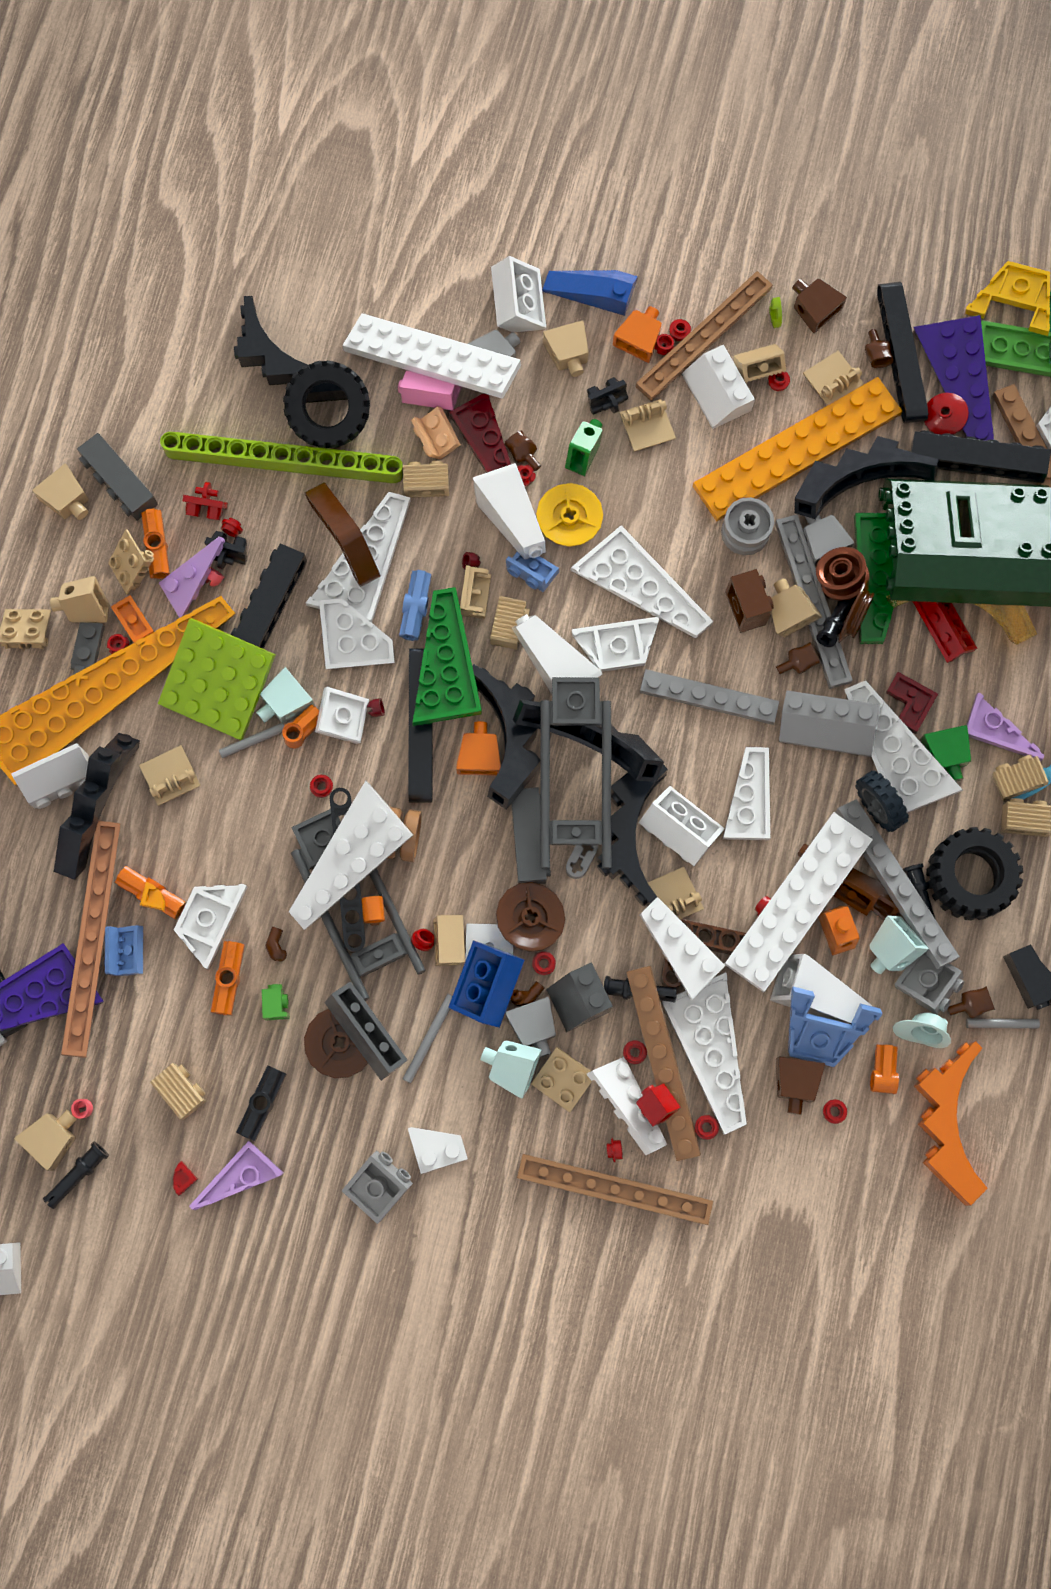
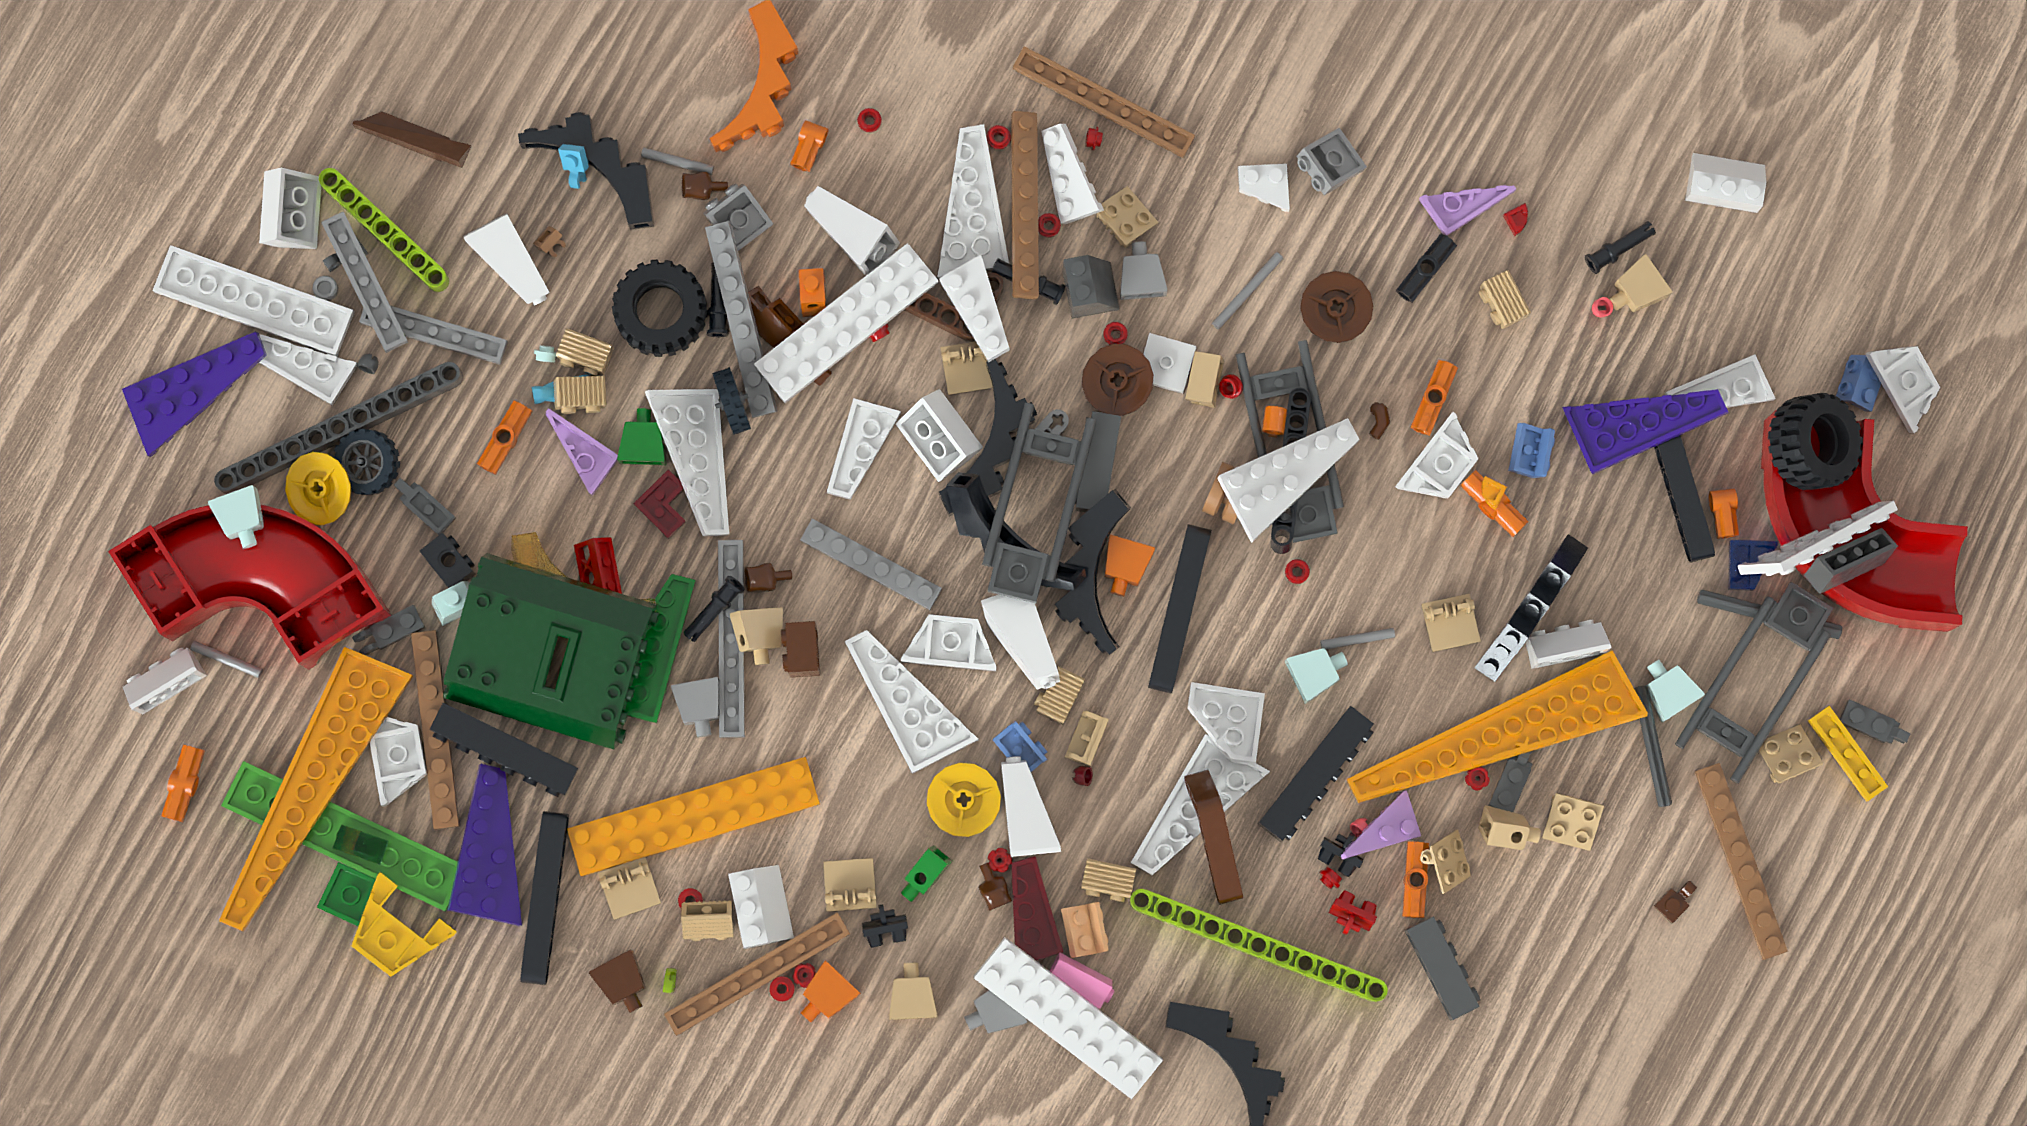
camera: 165 degrees left, 5 degrees up
(62, 494) = (1503, 962): tan torso -> none
(91, 940) = (1562, 469): nougat plate -> none
(132, 619) = (1456, 800): orange plate -> none
(216, 679) = (1381, 707): lime plate -> none
(274, 1003) = (1392, 361): bright green brick -> none
(297, 414) = (1201, 954): black tyre -> none
(303, 724) = (1300, 638): orange piece -> none
(342, 715) = (1259, 637): white plate -> none
(365, 1031) = (1309, 304): dark grey brick -> none
(377, 707) = (1221, 639): dark red hinge -> none
(415, 605) = (1154, 740): medium blue piece -> none
(446, 675) = (1140, 648): green wing -> none
(486, 984) = (1179, 324): blue slope -> none
(512, 1066) = (1173, 238): light aqua torso -> none
(518, 296) = (951, 1073): white slope -> none
(522, 998) = (1140, 305): reddish brown arm -> none
(597, 288) = (859, 1066): blue wedge -> none
(657, 1104) = (1042, 164): red brick -> none
(747, 526) = (774, 721): light grey wheel -> none
(798, 1081) = (897, 155): reddish brown torso -> none
(823, 1038) = (862, 186): medium blue wing -> none
(829, 723) = (758, 498): light grey slope -> none
(831, 570) = (691, 637): copper wheel -> none
(854, 468) = (642, 771): black arch -> none
(857, 613) = (695, 600): reddish brown piece -> none
(878, 351) = (570, 906): reddish brown piece -> none
(895, 945) = (762, 257): light aqua torso -> none
(924, 1029) = (756, 174): light aqua piece -> none
(949, 423) = (508, 816): red dish -> none

